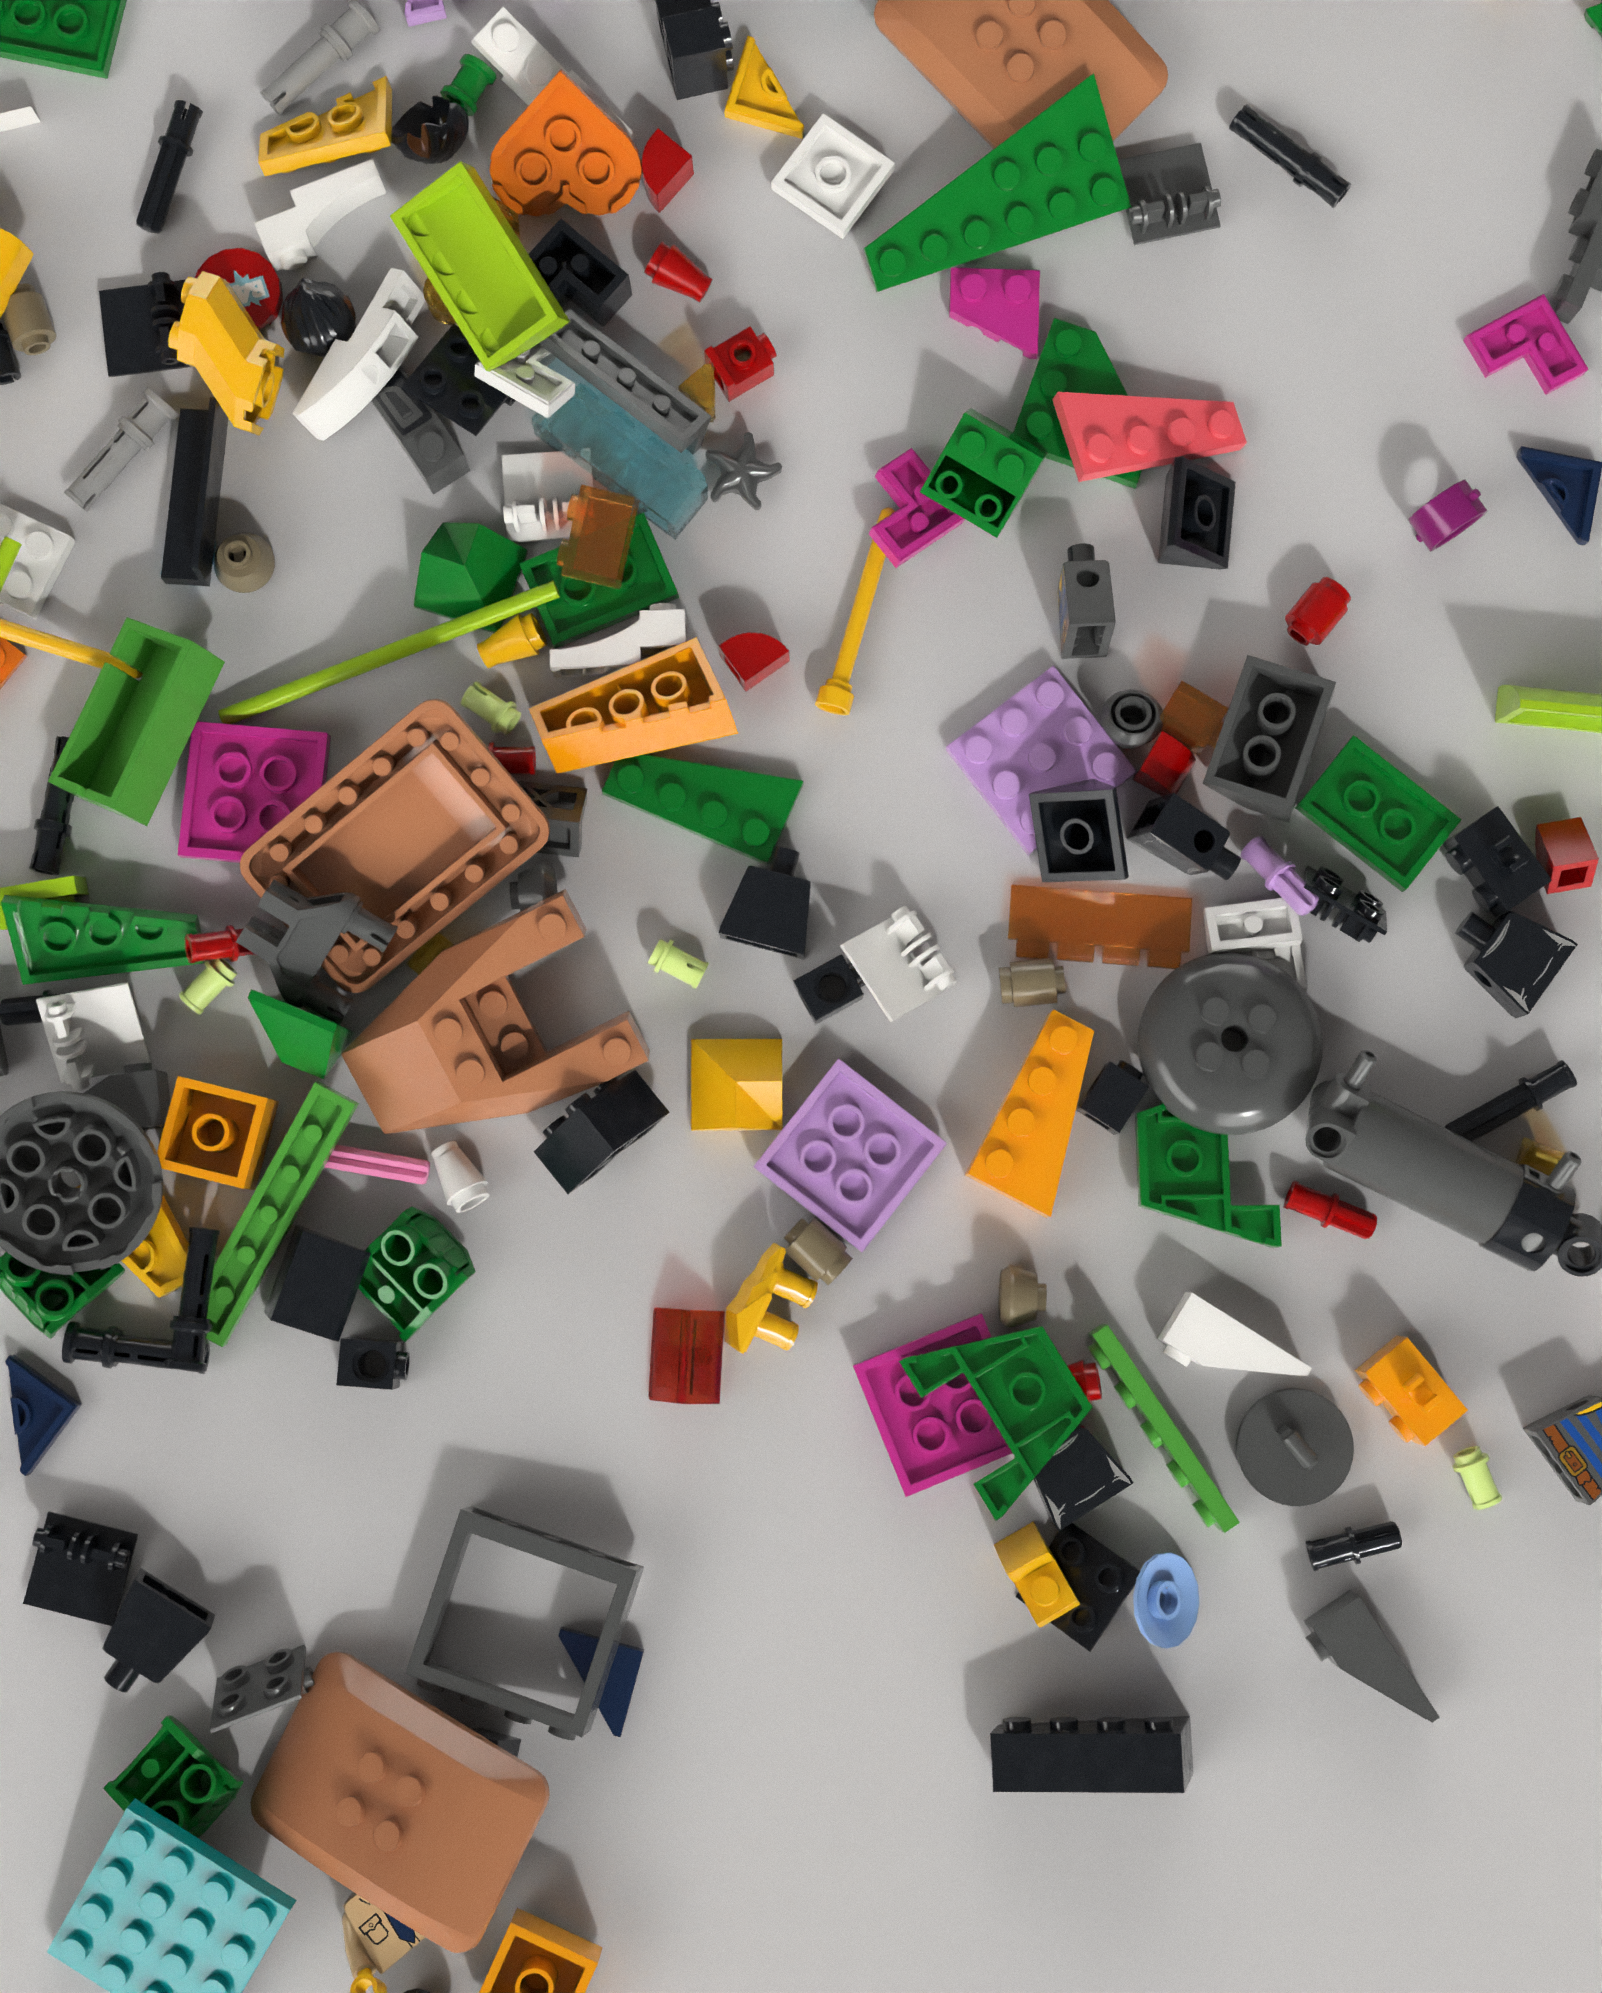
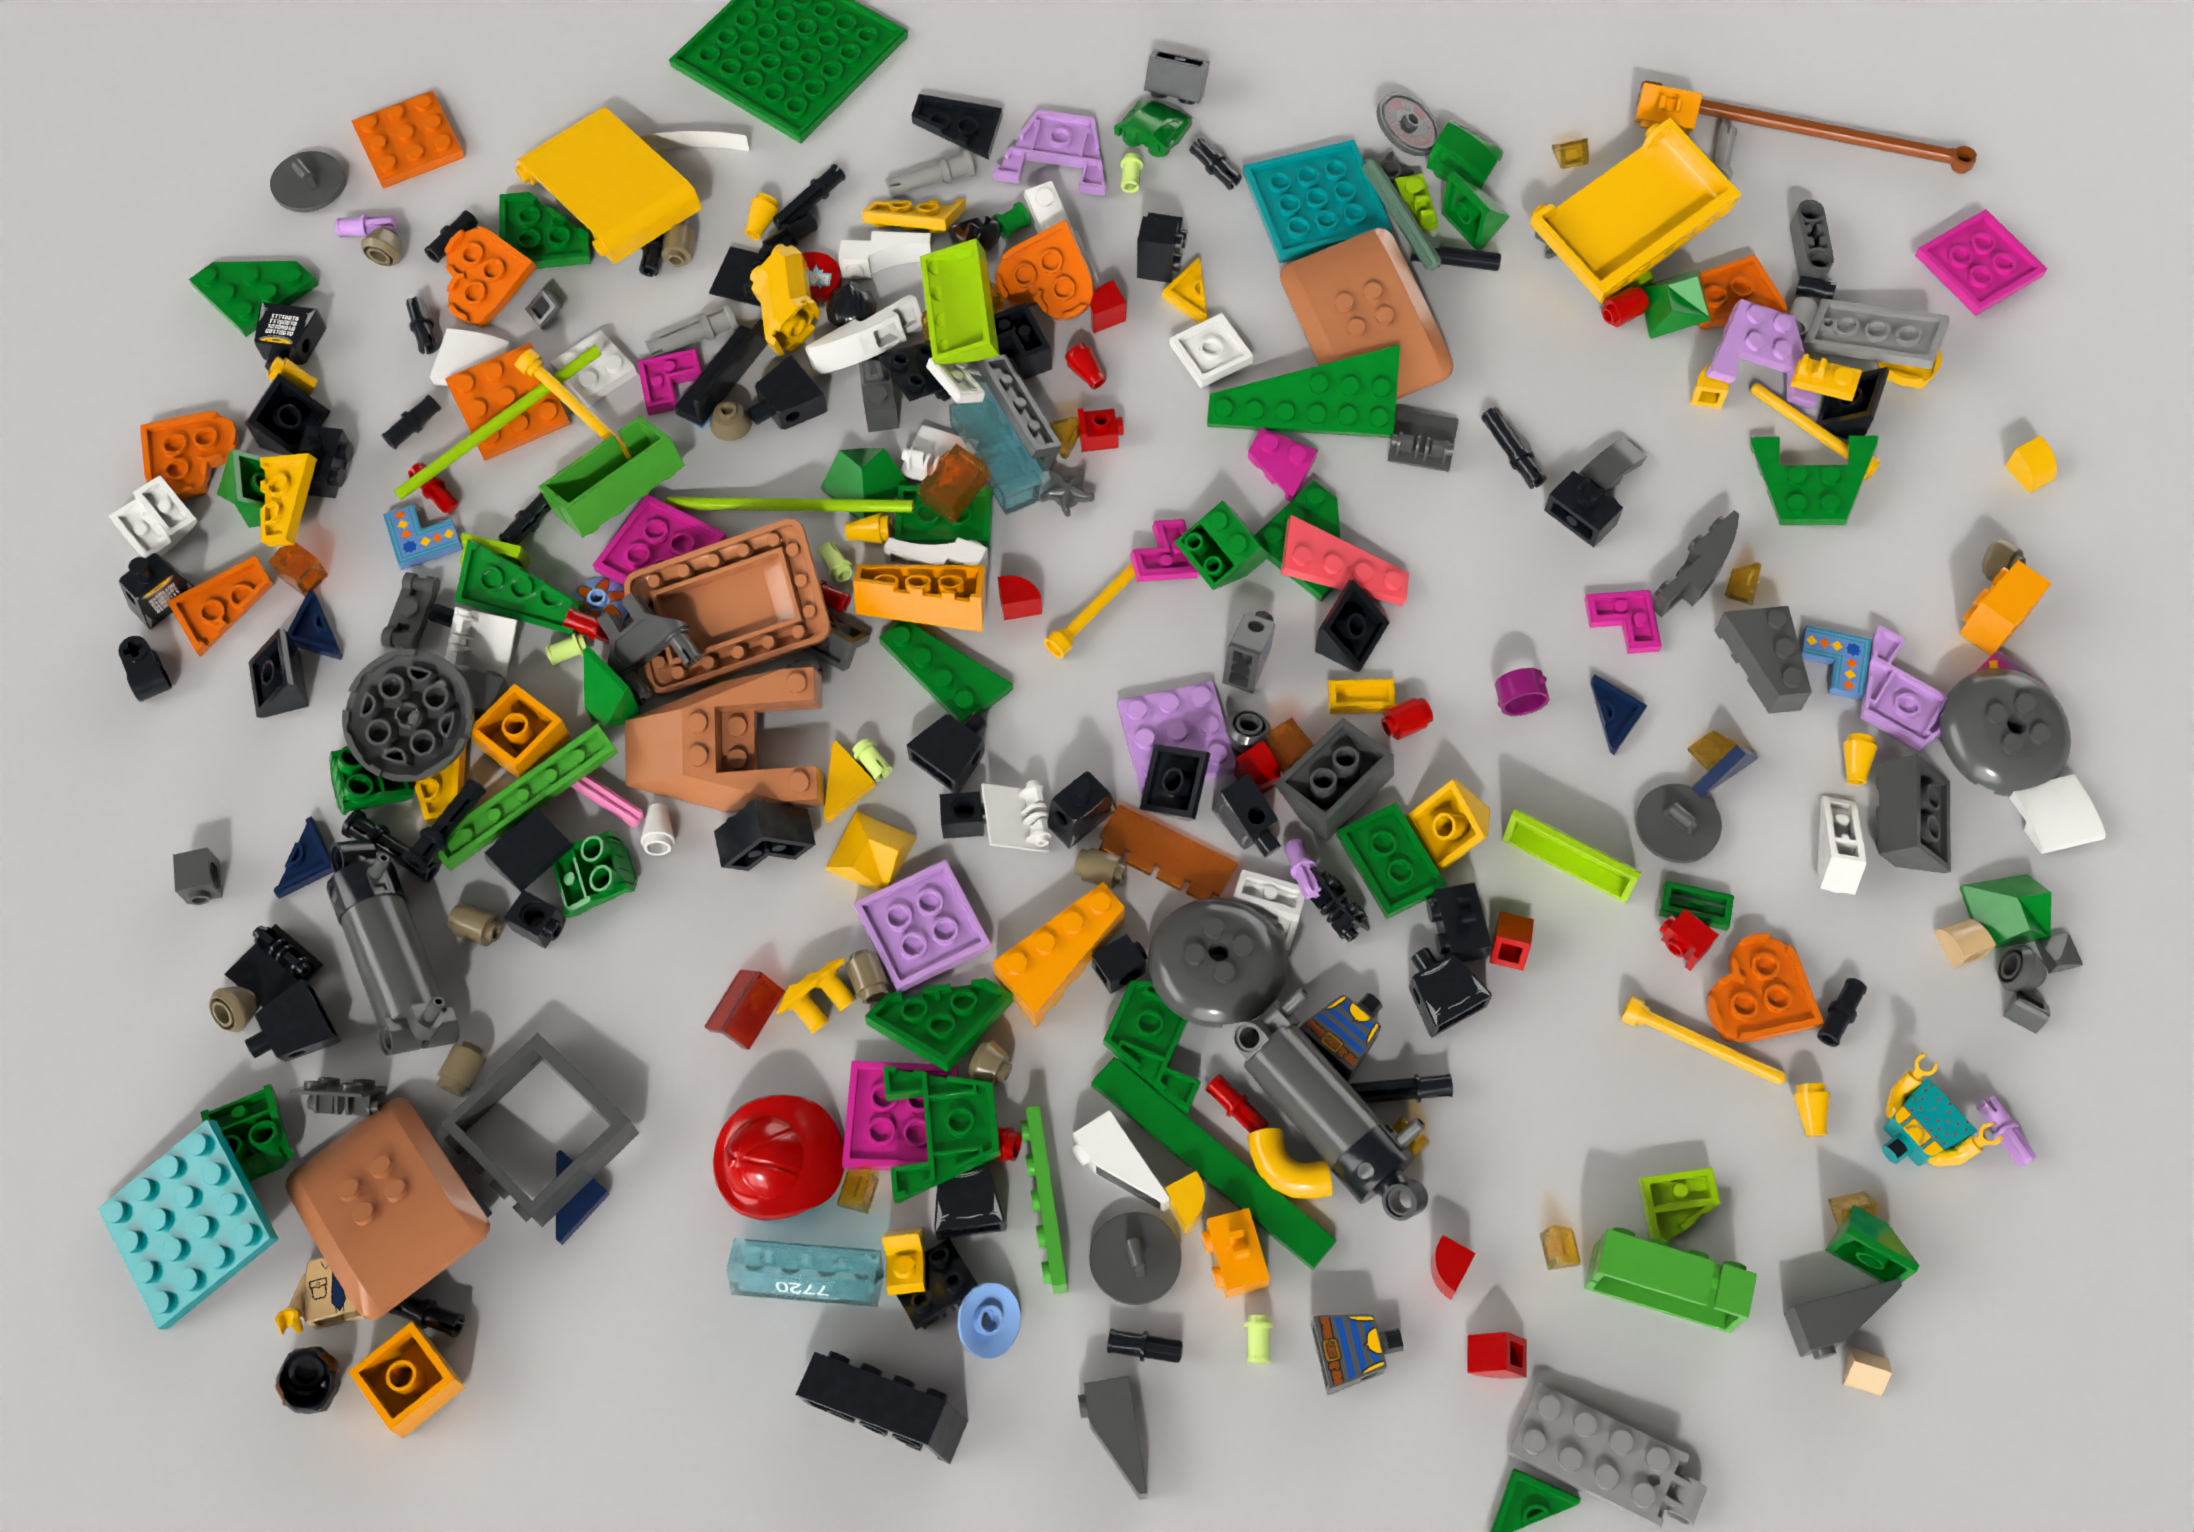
camera: 25 degrees right, 20 degrees down
(63, 1642) = (232, 1007): none -> dark tan cone
(110, 529) = (661, 374): none -> dark pink tile
(117, 224) = (761, 214): none -> yellow cone
(173, 235) = (793, 232): none -> black axle
(215, 1490) = (388, 950): none -> dark grey piece
(235, 898) = (604, 588): none -> dish
(300, 1401) = (475, 924): none -> dark tan brick
(302, 492) = (787, 396): none -> black torso
(386, 1588) = (461, 1068): none -> dark tan brick
(531, 1890) = (428, 1314): none -> black pin
(658, 1006) = (845, 783): none -> yellow tile
(827, 1524) = (778, 1157): none -> red piece
(930, 1645) = (805, 1272): none -> clear light blue brick
(932, 1265) = (940, 1020): none -> green plate
(934, 1514) = (858, 1190): none -> clear yellow slope
(973, 920) = (1083, 805): none -> black torso
(1245, 602) = (1360, 696): none -> yellow tile
(1327, 1354) = (1187, 1200): none -> yellow brick
(1330, 1290) = (1213, 1163): none -> green tile
(1417, 210) = (1583, 508): none -> black brick
(1420, 1064) = (1345, 1032): none -> torso
(1425, 1270) = (1283, 1172): none -> yellow cylinder
(1427, 128) = (1612, 464): none -> dark grey slope
(1434, 737) = (1450, 823): none -> yellow slope

